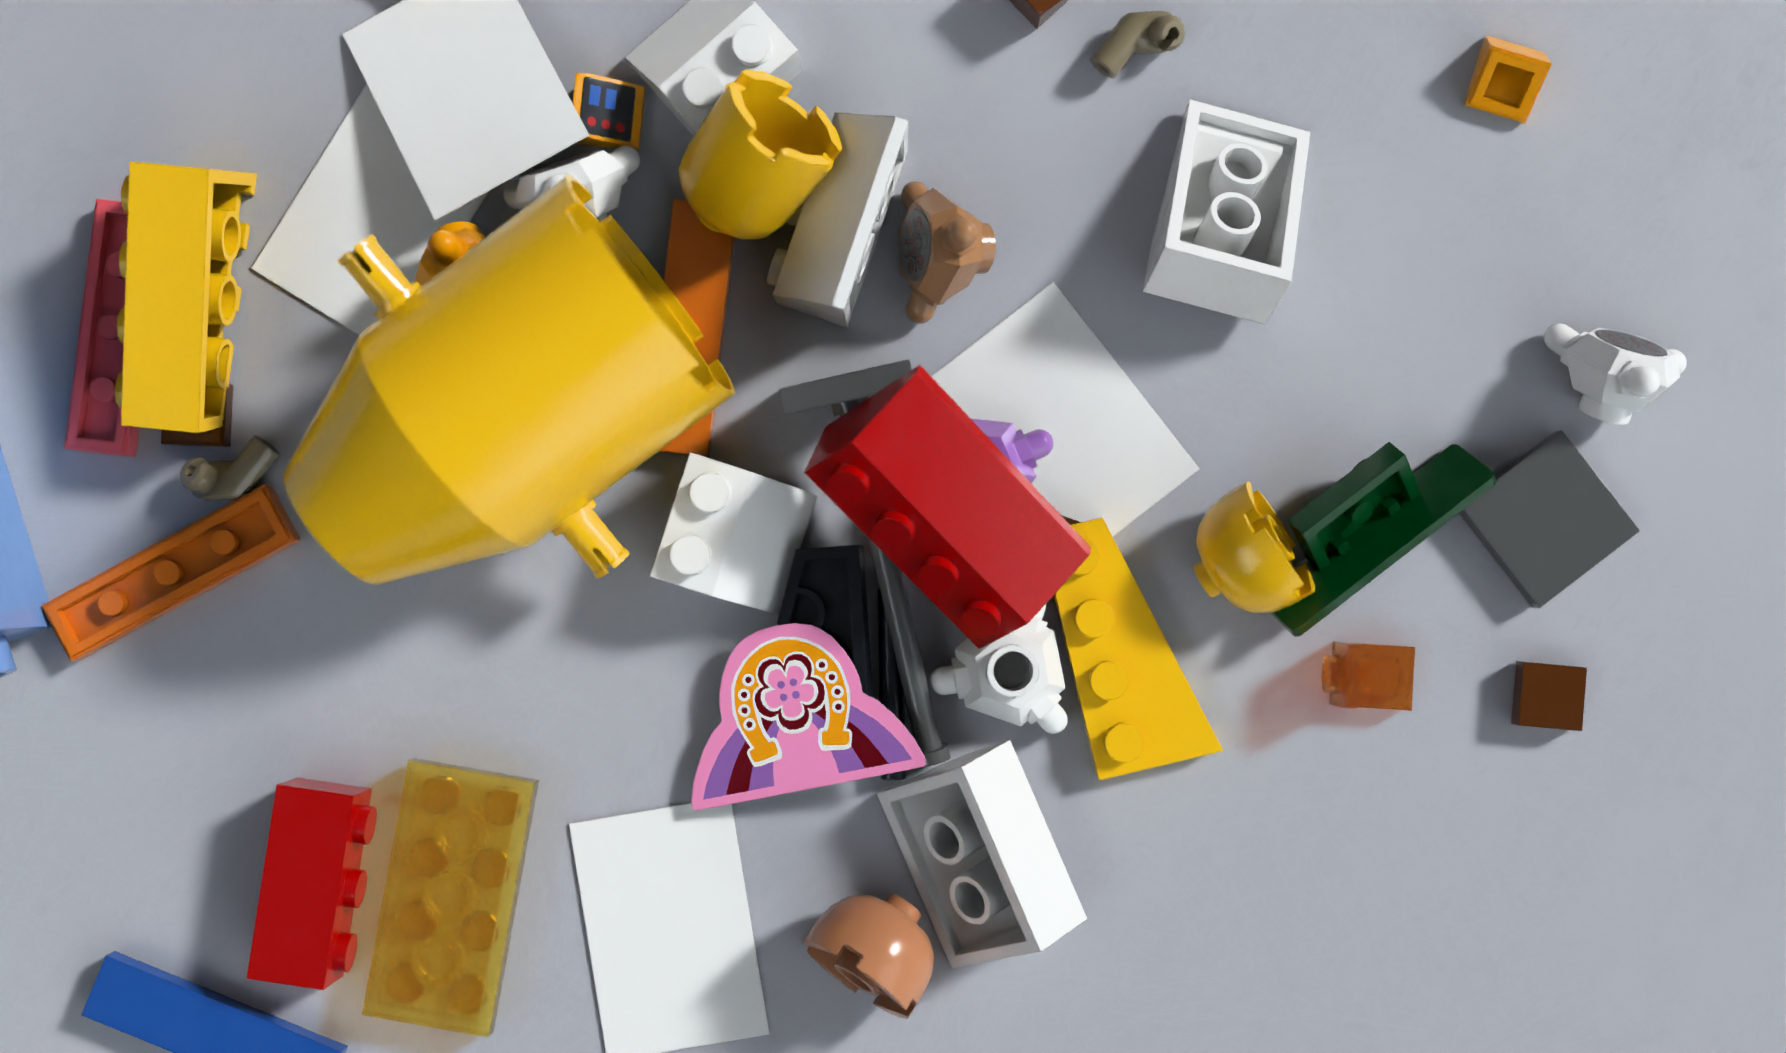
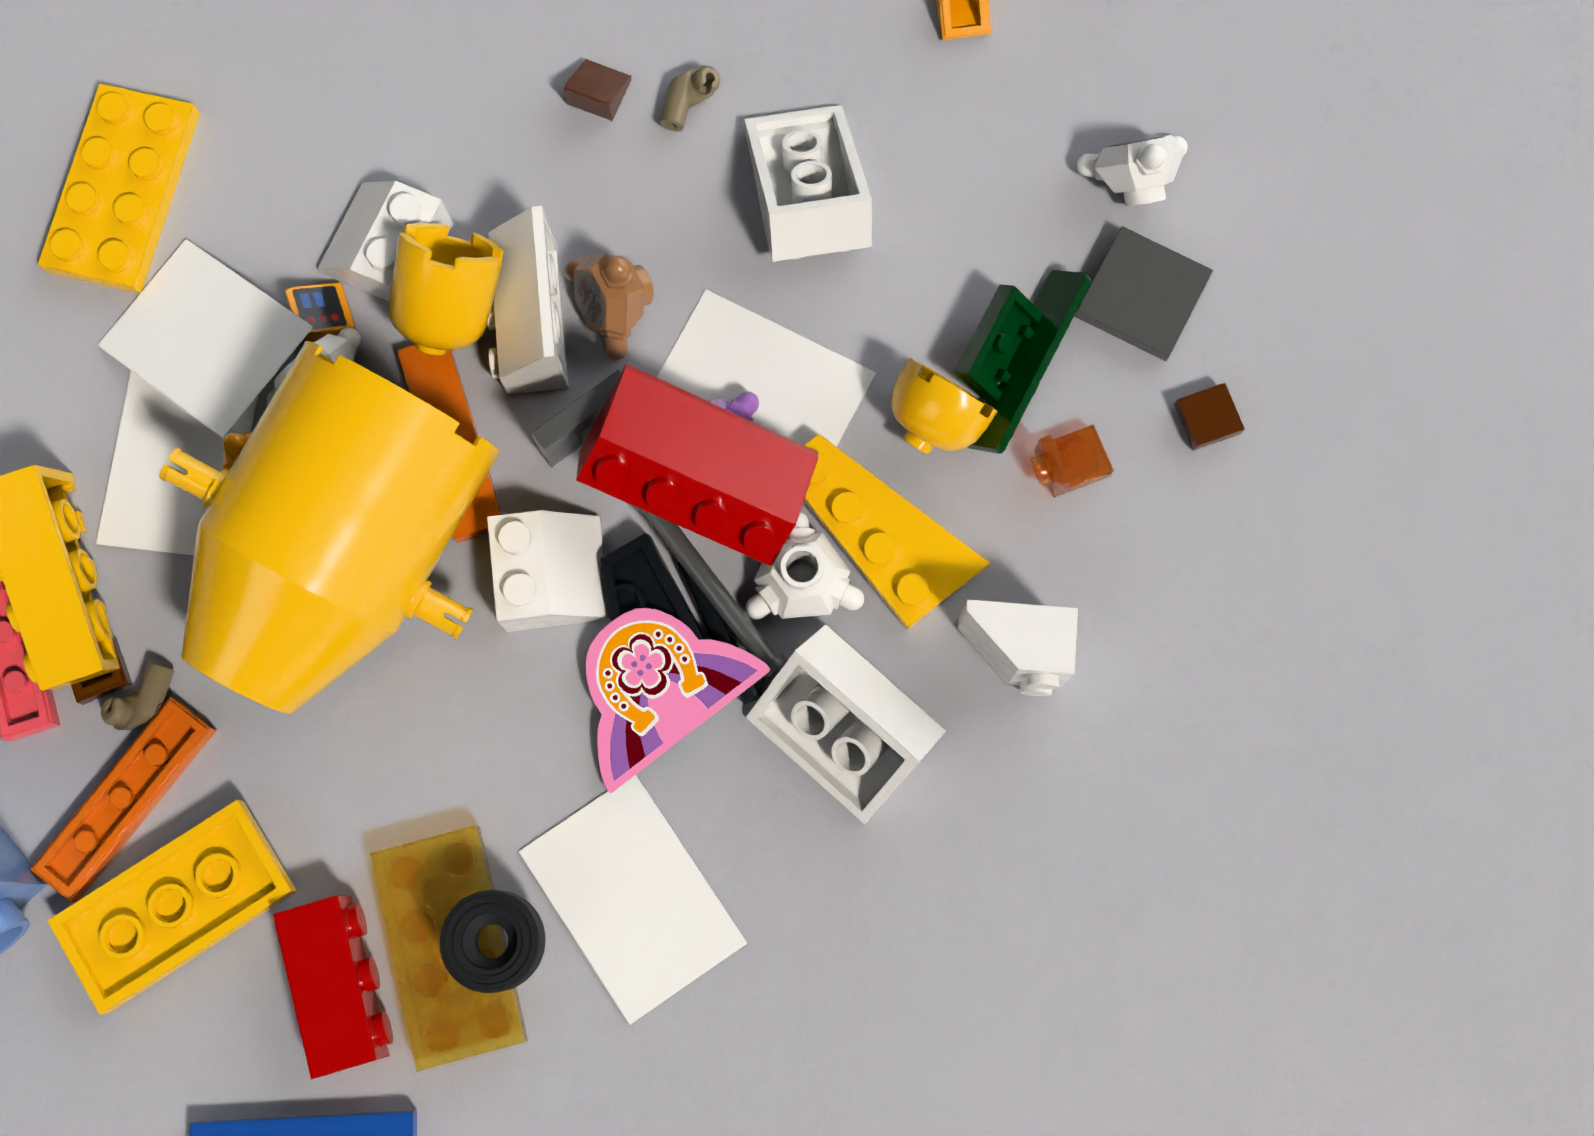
camera: 30 degrees left, 10 degrees down
(176, 717) = (171, 907): none -> yellow plate
(460, 931) = (460, 941): none -> black tyre
(875, 949) = (796, 830): nougat cylinder -> none
(1222, 875) = (1023, 642): none -> white slope

